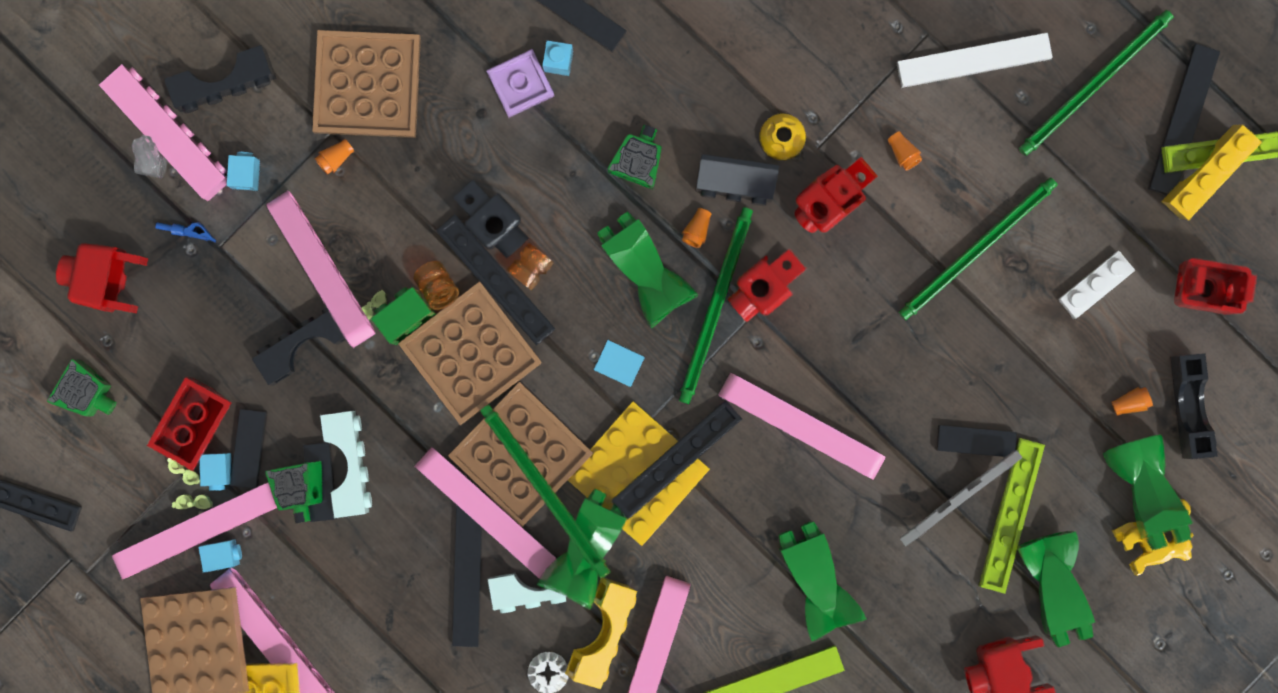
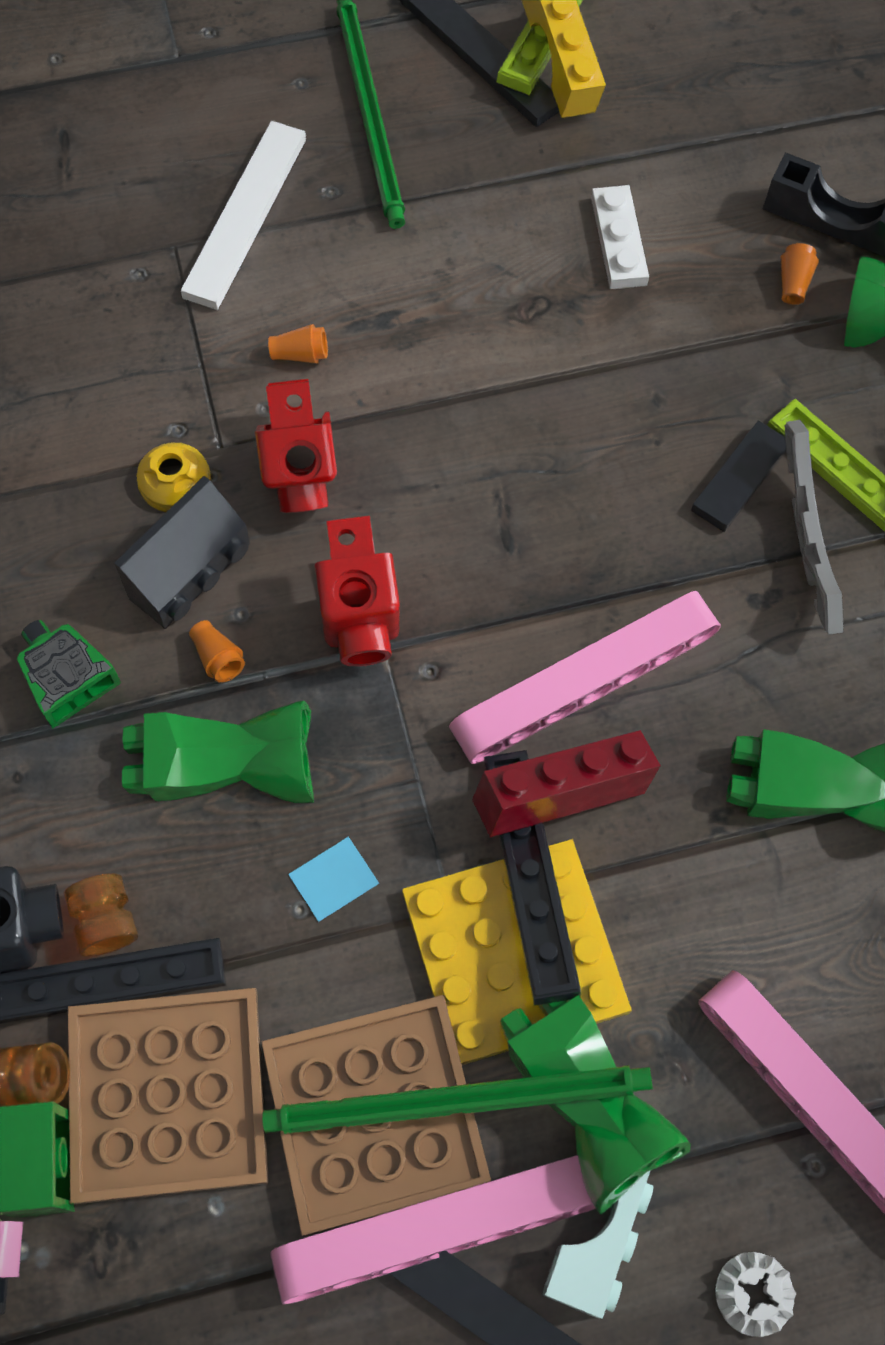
camera: 60 degrees left, 20 degrees down
(592, 662) = (778, 1204): yellow arch -> none
(715, 305) = (344, 696): green piece -> none
(732, 451) = (564, 782): none -> dark red brick
(978, 248) = (486, 341): green piece -> none
(1229, 286) = (692, 107): red piece -> none

